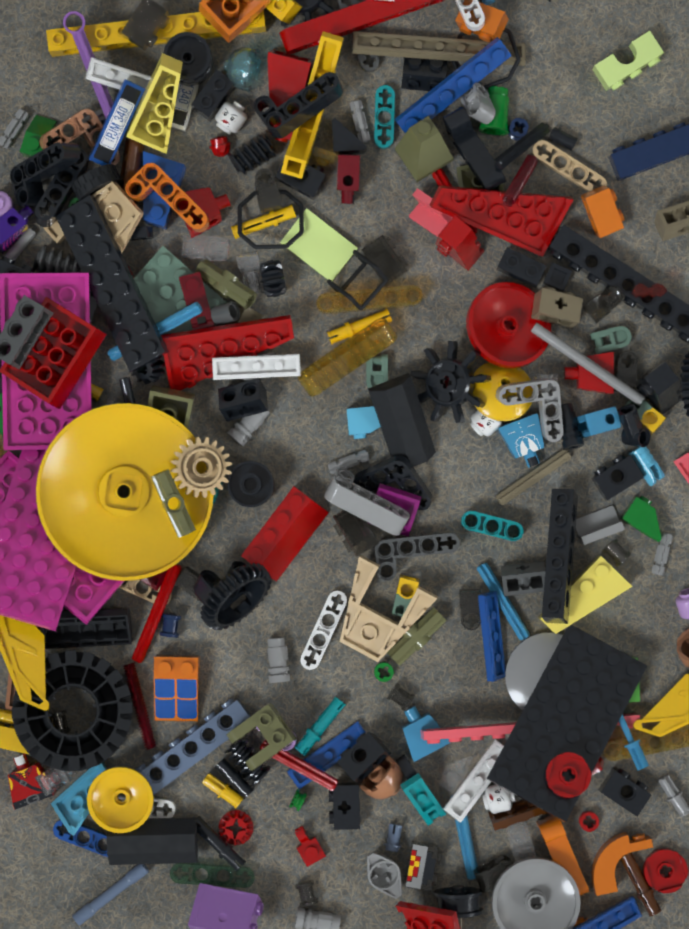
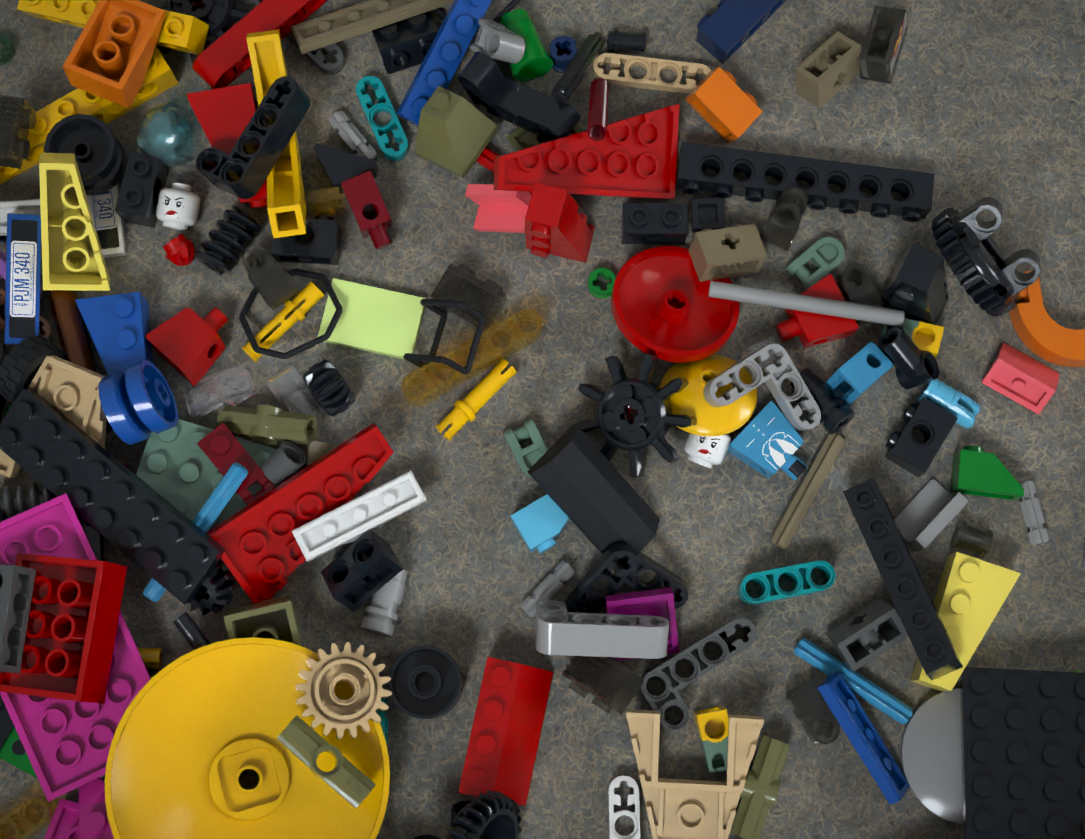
camera: 25 degrees left, 10 degrees down
(155, 237) = (138, 402): none -> blue wheel
(173, 199) = (140, 341): orange beam -> none
(347, 357) = (478, 446): clear yellow beam -> none
(476, 285) = (596, 290): none -> green bush
(655, 290) = (828, 177): clear red piece -> none

